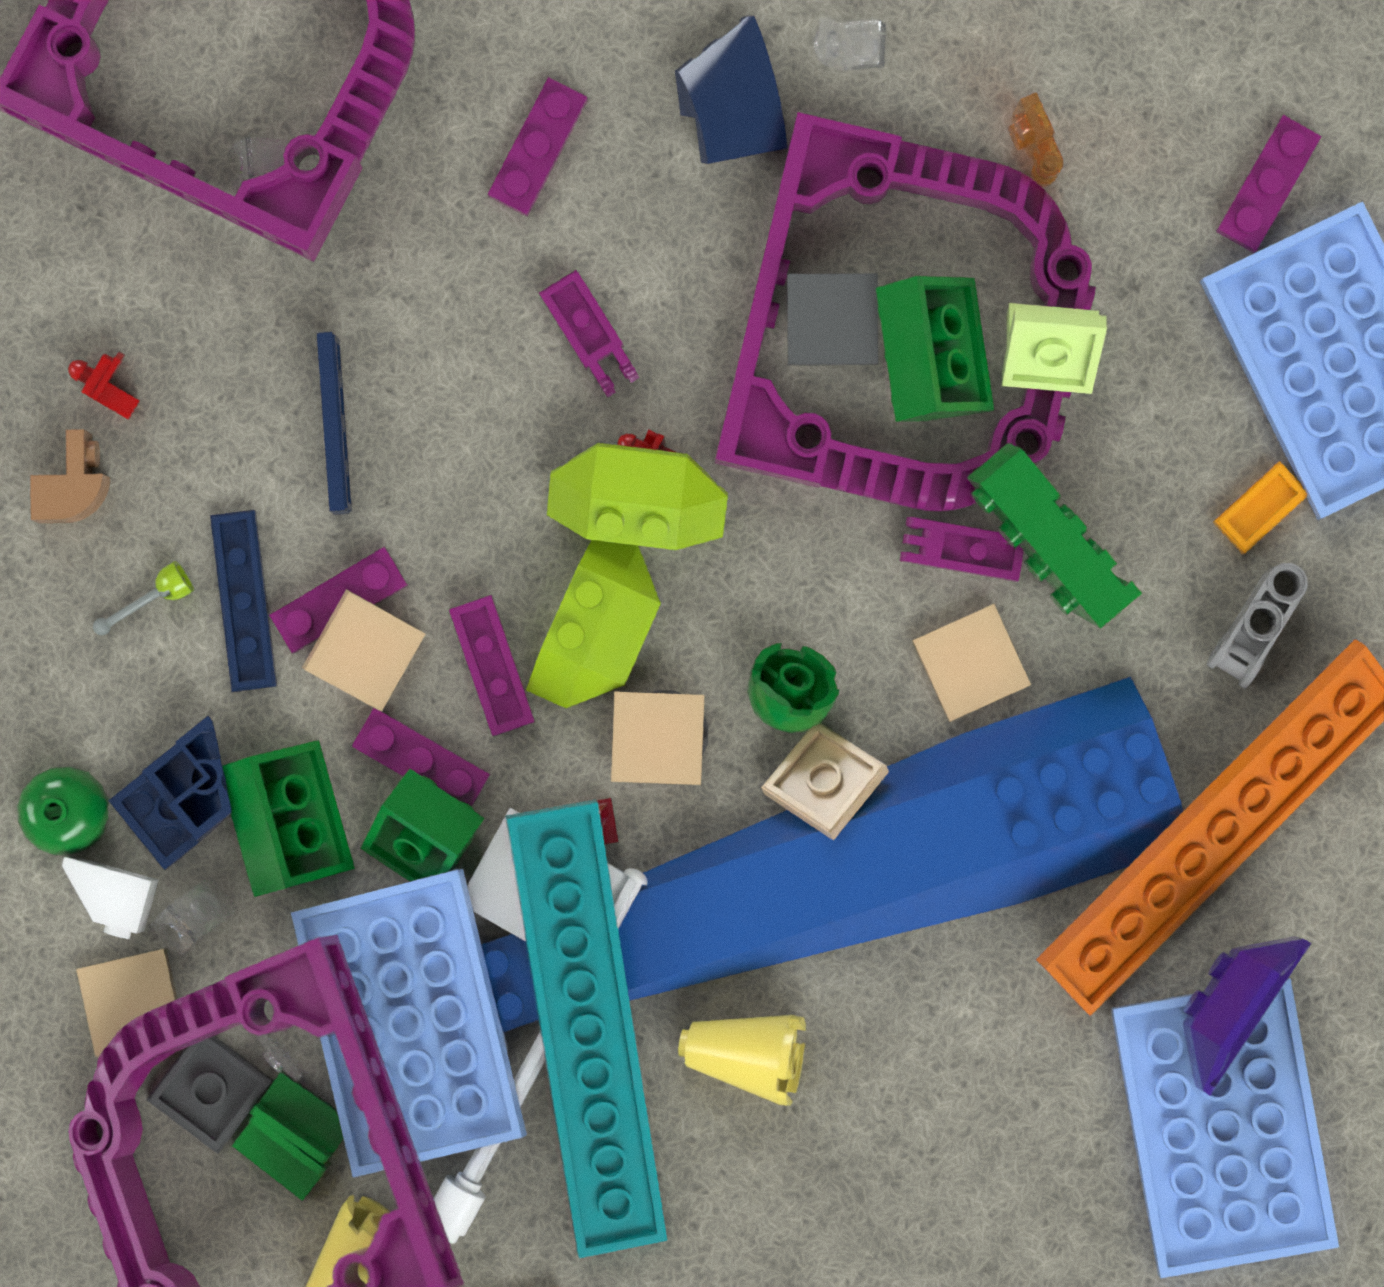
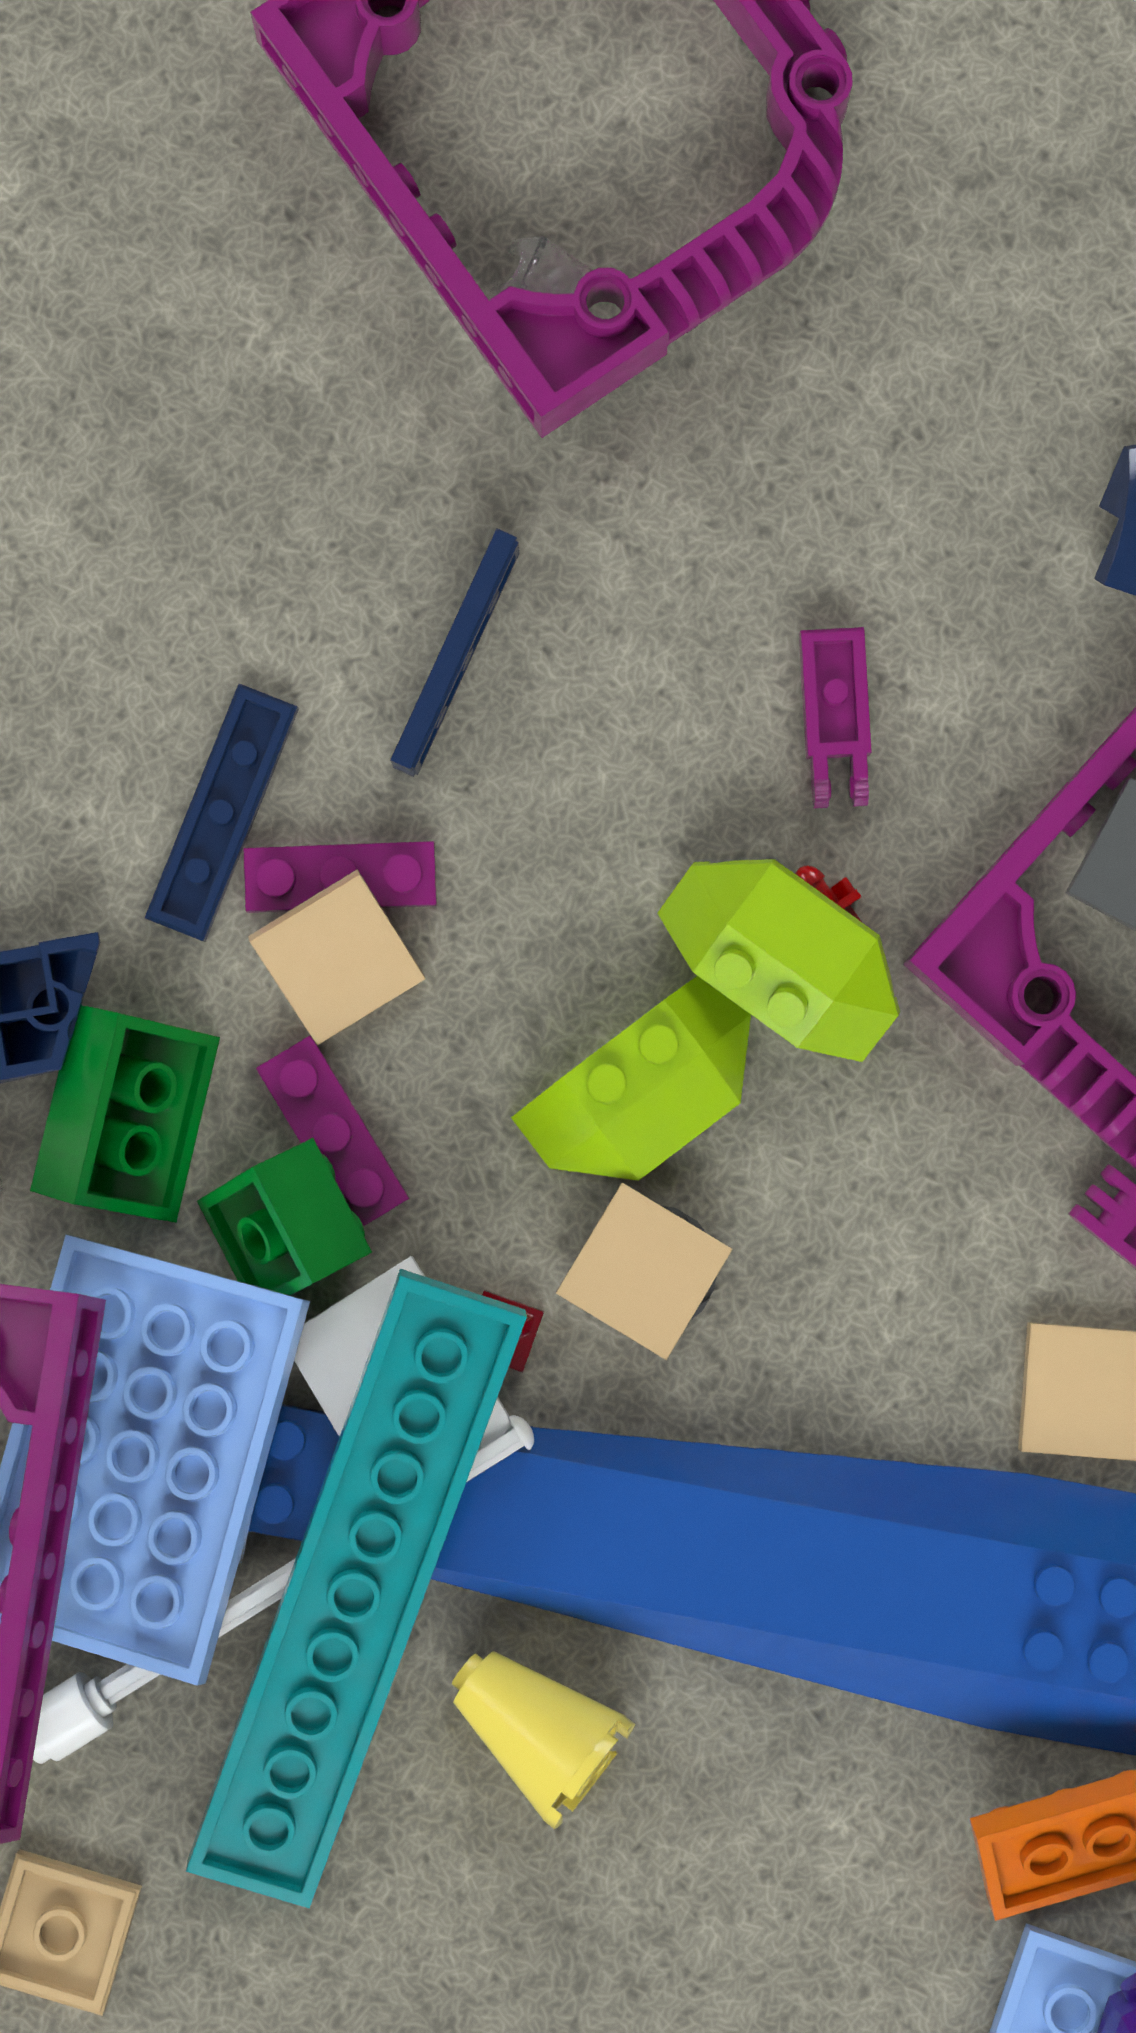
camera: 25 degrees right, 0 degrees up
(73, 494) = (84, 564): medium nougat brick -> none
(98, 384) = (190, 444): red piece -> none
(168, 585) = (139, 742): hinge -> none
(492, 665) = (486, 1064): magenta plate -> none
(537, 146) = (898, 448): magenta plate -> none
(792, 688) = (848, 1302): green cylinder -> none
(825, 780) = (825, 1440): tan tile -> none

